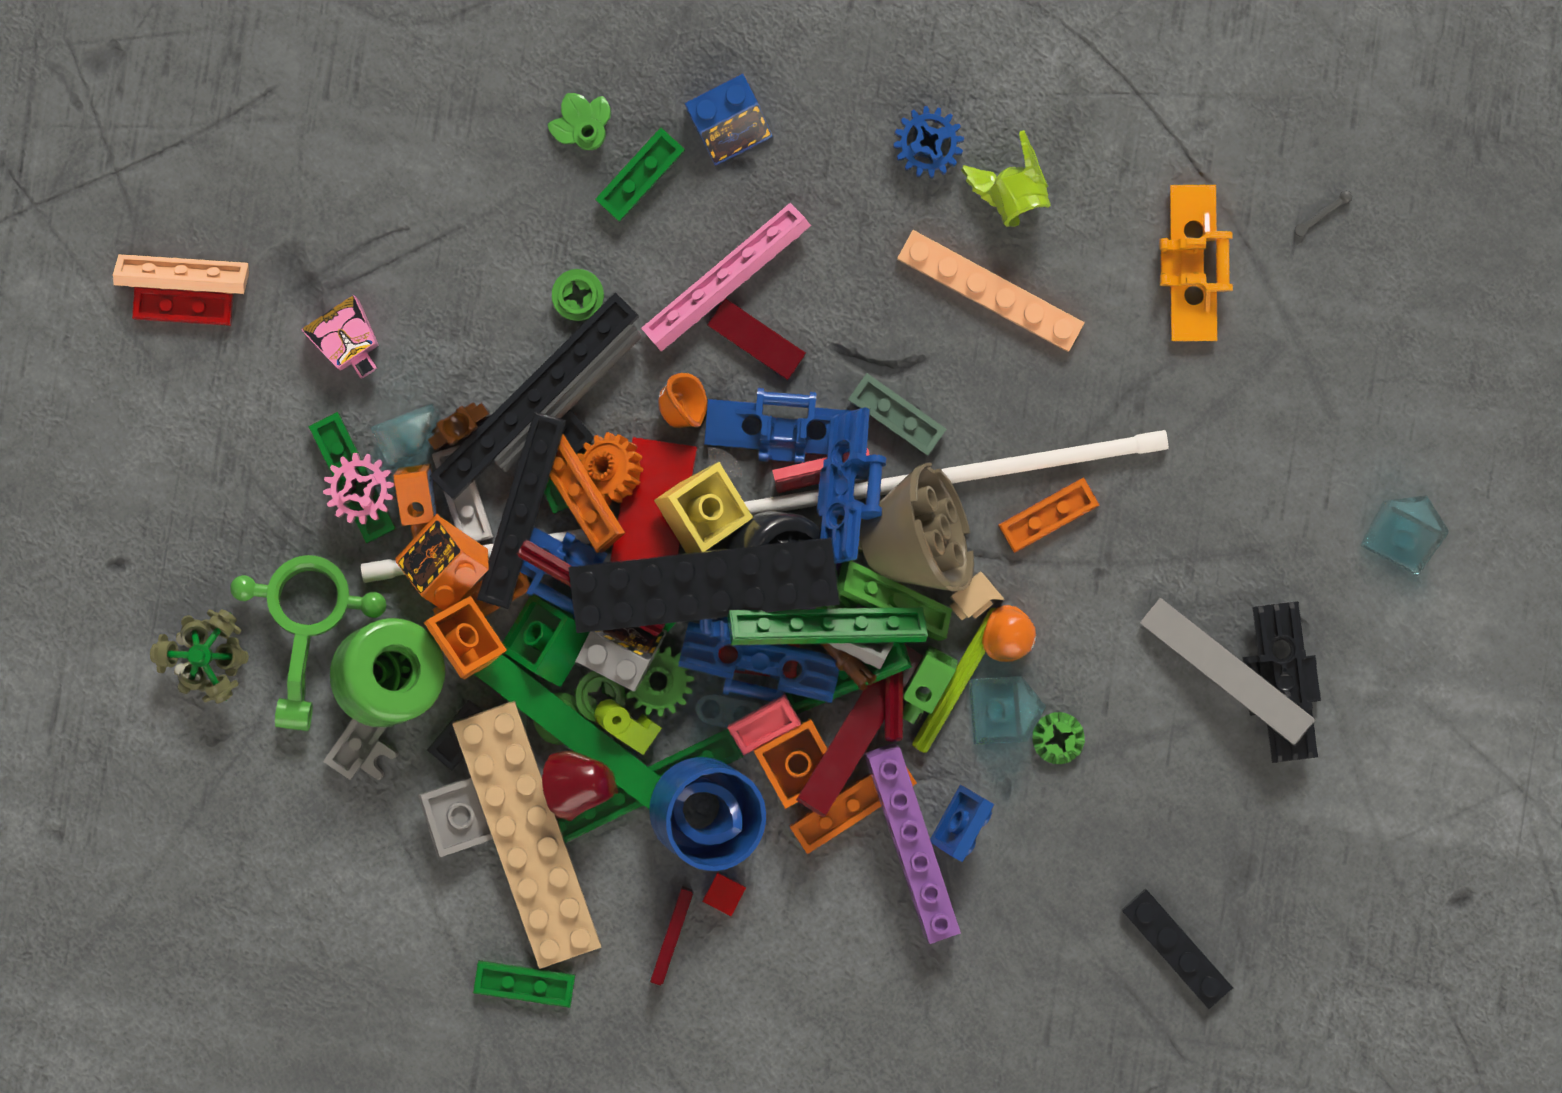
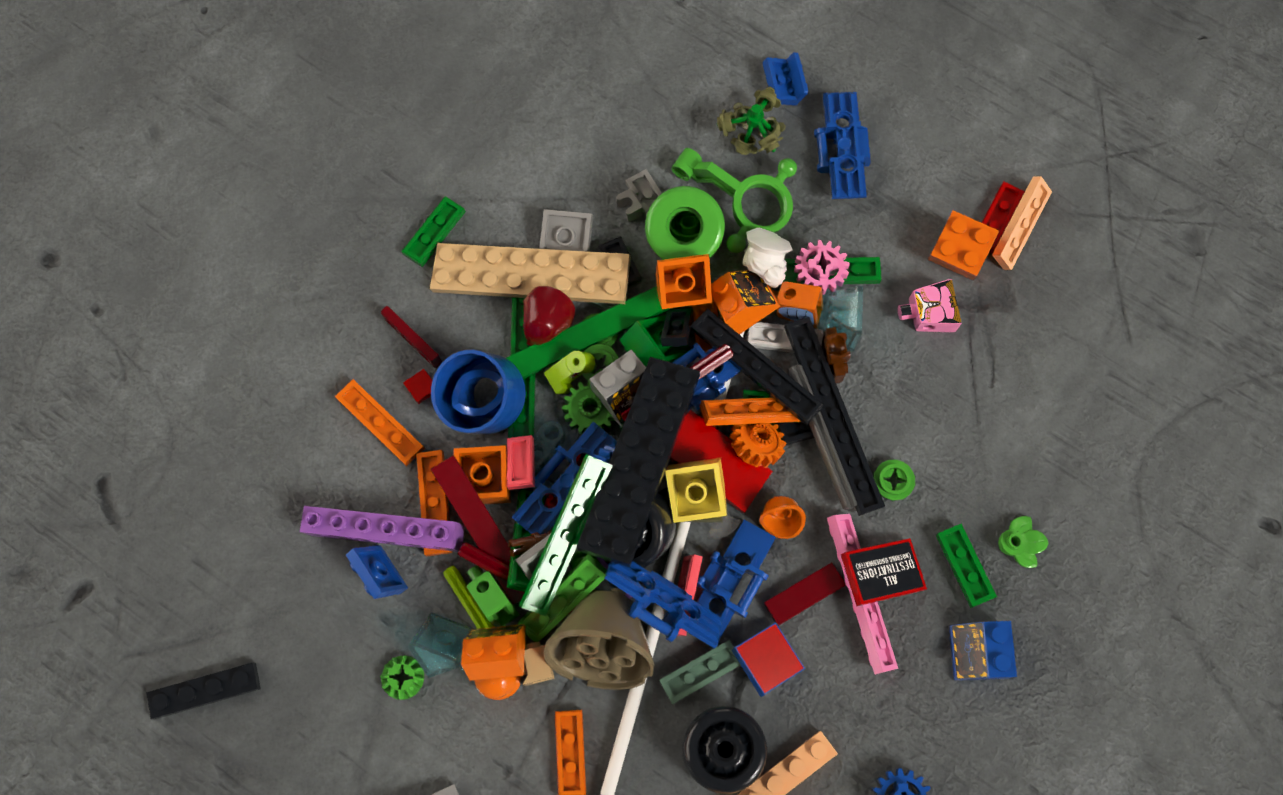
camera: 115 degrees right, 15 degrees down
(116, 645) = (786, 78): none -> blue bracket
(174, 523) = (851, 146): none -> blue piece
(249, 332) = (963, 245): none -> orange brick
(377, 559) = (766, 255): none -> white piece
(518, 623) = (677, 327): none -> black plate
(693, 262) = (883, 572): none -> black tile
(790, 918) = (379, 422): none -> orange plate
(848, 347) = (768, 659): none -> red tile
(961, 377) = (701, 754): none -> black wheel
(985, 645) = (494, 652): none -> orange slope

